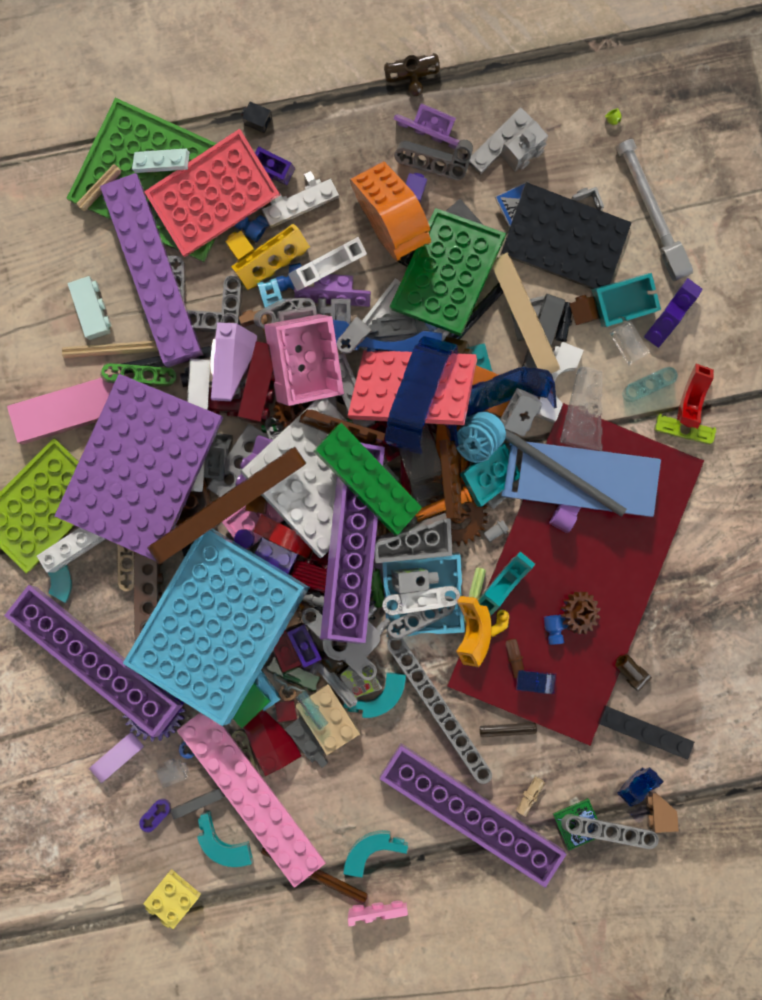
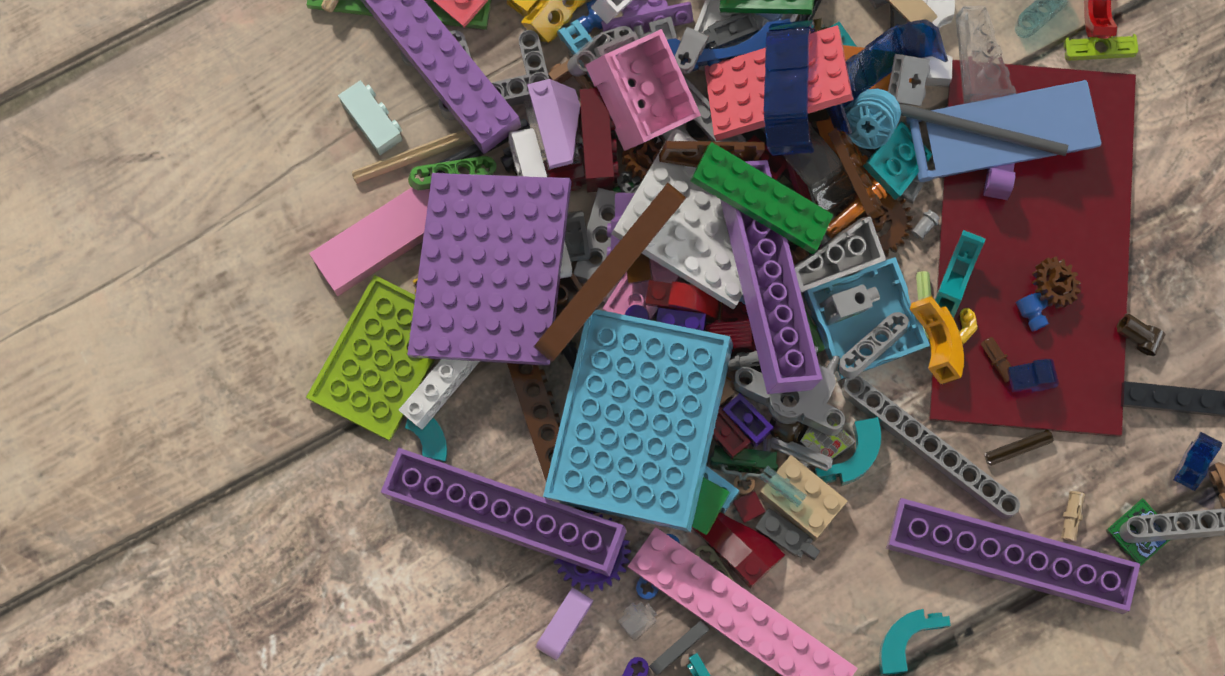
camera: 15 degrees left, 10 degrees down
(121, 578) = (504, 411): tan beam -> none
(421, 600) = (867, 322): white plate -> none

